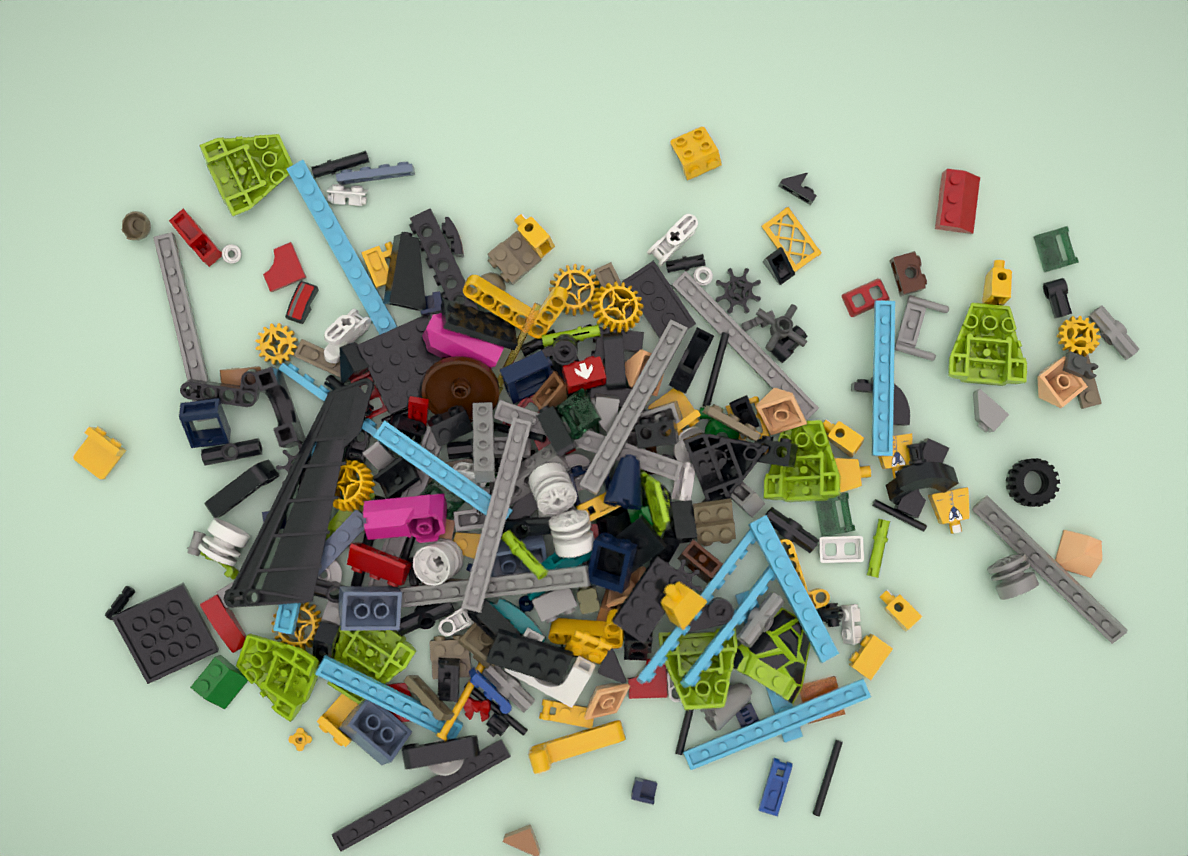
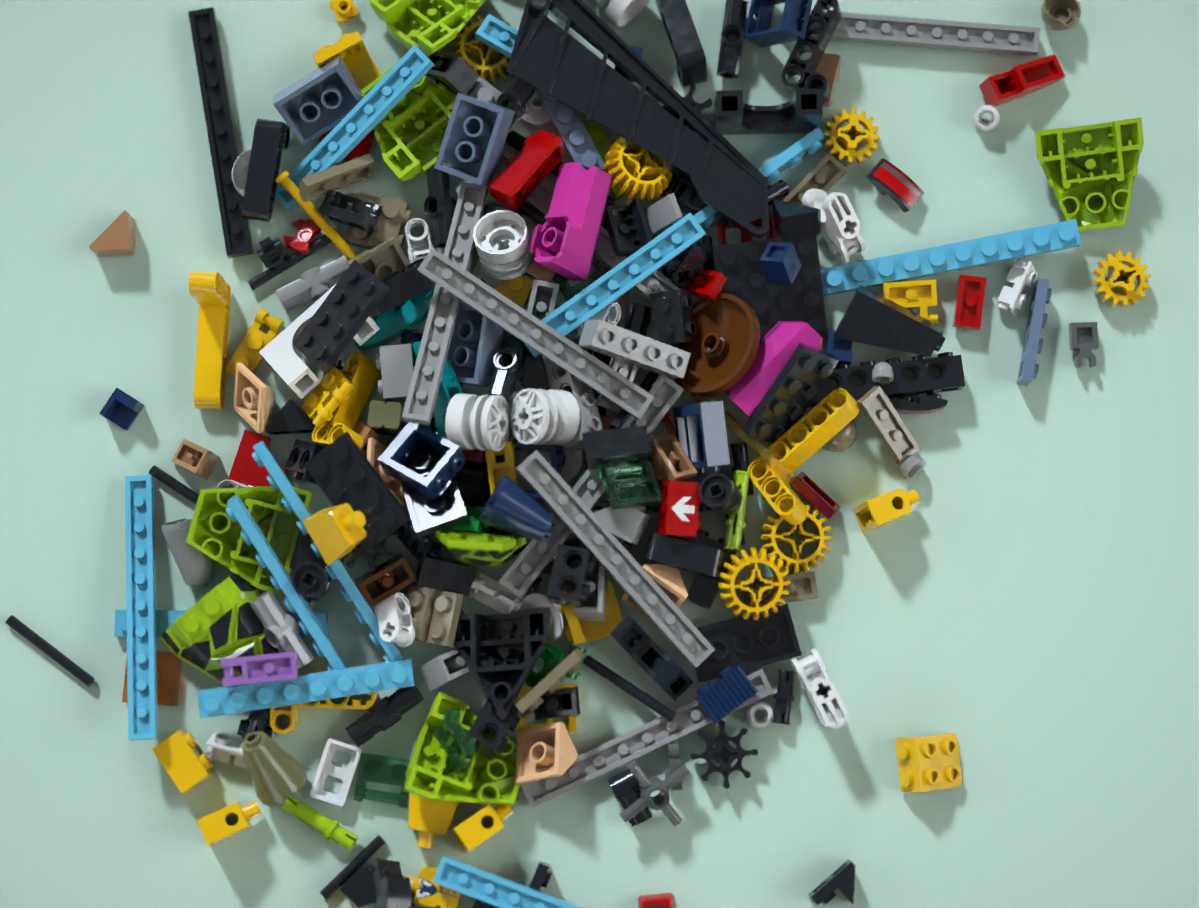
camera: 110 degrees right, 5 degrees down
(285, 268) = (945, 179): red tile -> none
(323, 119) = (1124, 288): none -> yellow gear
(333, 166) = (1060, 283): black pin -> none
(369, 138) = (1084, 338): none -> dark grey plate
(369, 224) = (969, 302): none -> red plate
(387, 362) = (780, 262): none -> dark blue panel
(441, 267) = (882, 373): none -> light grey hinge
(475, 252) = (888, 424): none -> plate
(490, 690) = (334, 248): blue plate -> none
(498, 227) = (911, 467): none -> light grey plate
(513, 258) = (864, 472): dark tan plate -> none
(518, 548) = (481, 347): lime pin -> none
(540, 286) = (815, 495): none -> dark red tile
(661, 726) = (195, 458): none -> medium nougat slope
(698, 302) = (725, 694): none -> dark blue brick
(725, 545) = (394, 619): none -> white piece
(747, 715) = (167, 574): dark blue tile -> none
(775, 787) = (62, 577): blue plate -> none
(779, 266) = (738, 821): black slope -> none
(792, 623) = (260, 668): none -> medium lavender plate
(796, 224) = (777, 830): yellow window -> none
(797, 469) = (455, 741): none -> clear green plate
(856, 591) = (272, 769): none -> olive cone

